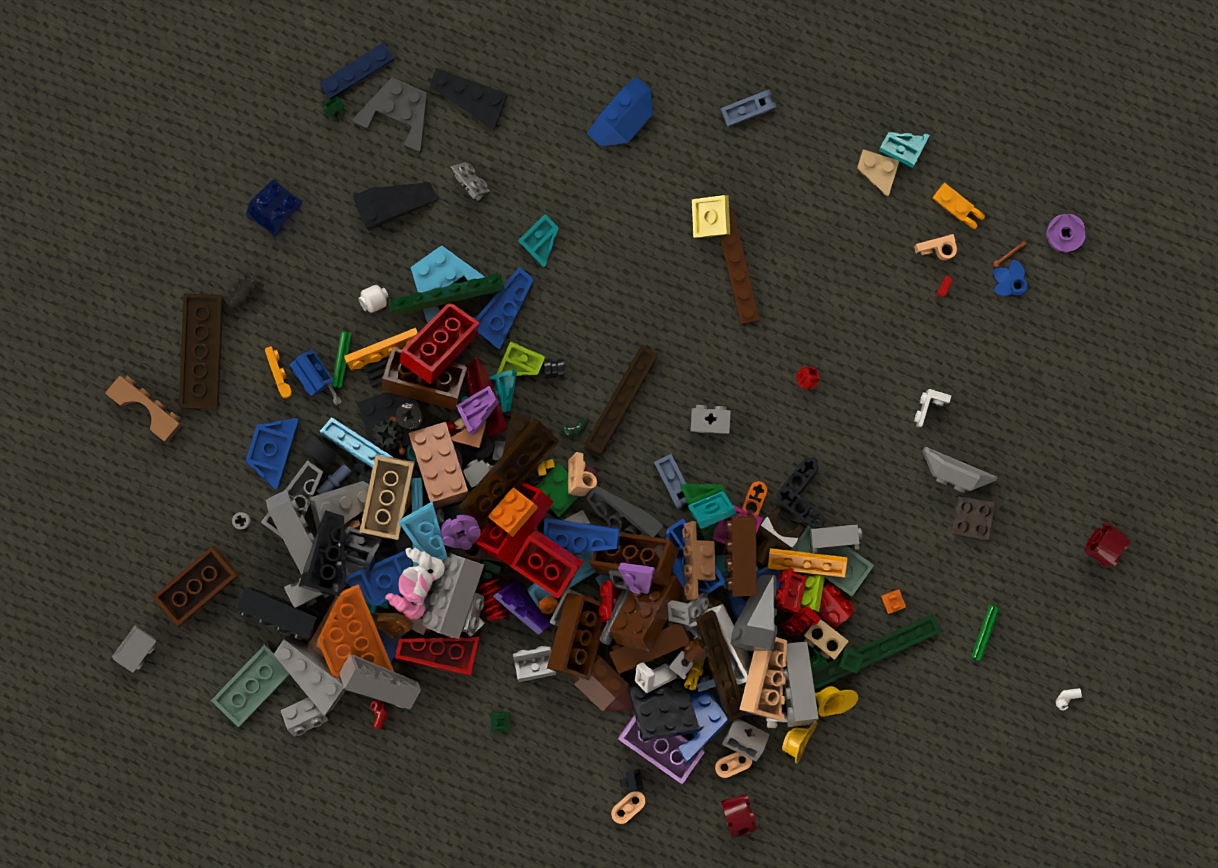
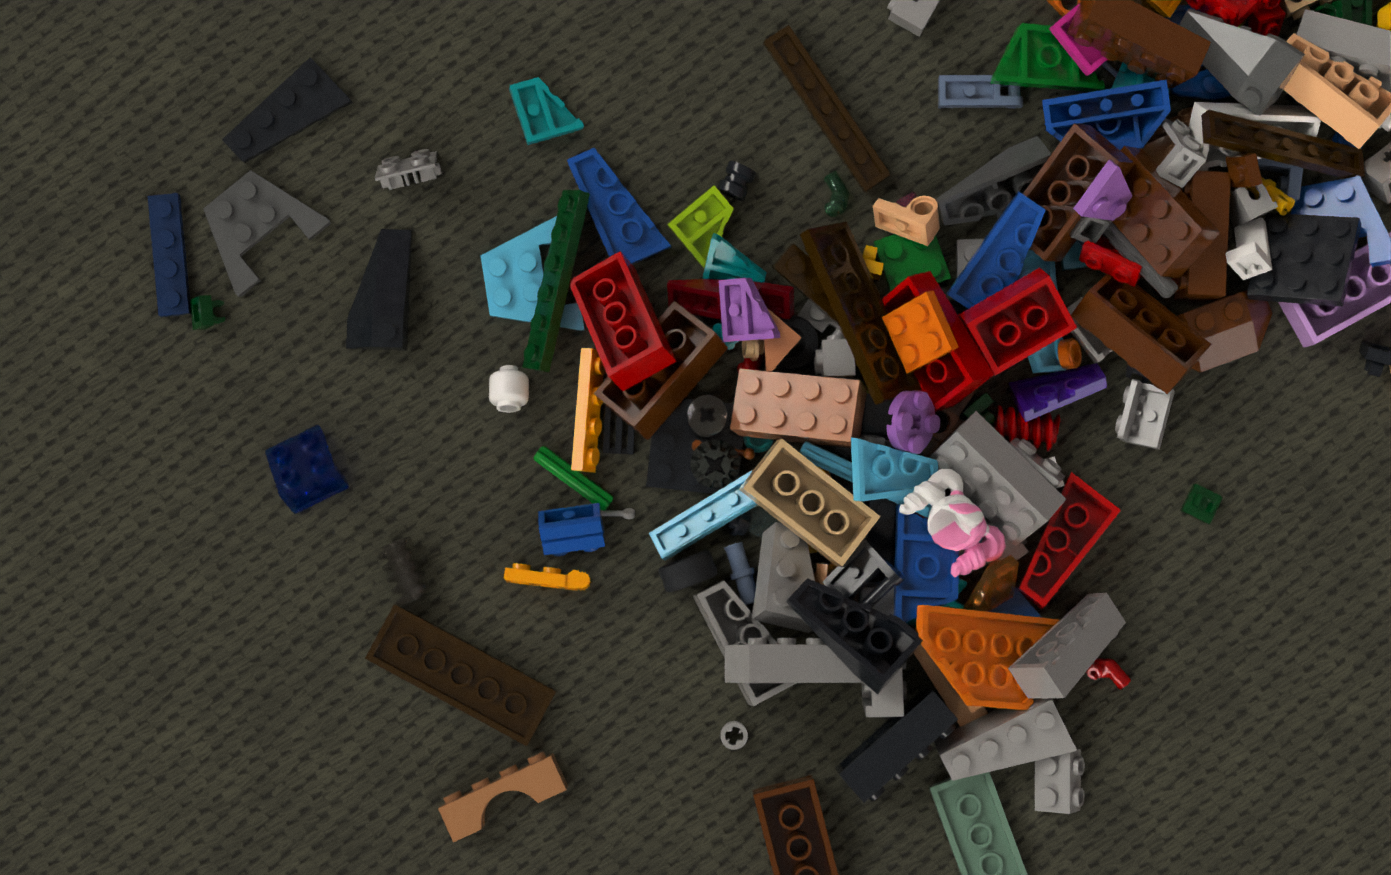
camera: 60 degrees left, 0 degrees up
(271, 449) = (653, 641): blue wing -> none
(698, 561) = (1117, 104): medium nougat bracket -> none
(712, 509) = (1054, 49): teal plate -> none

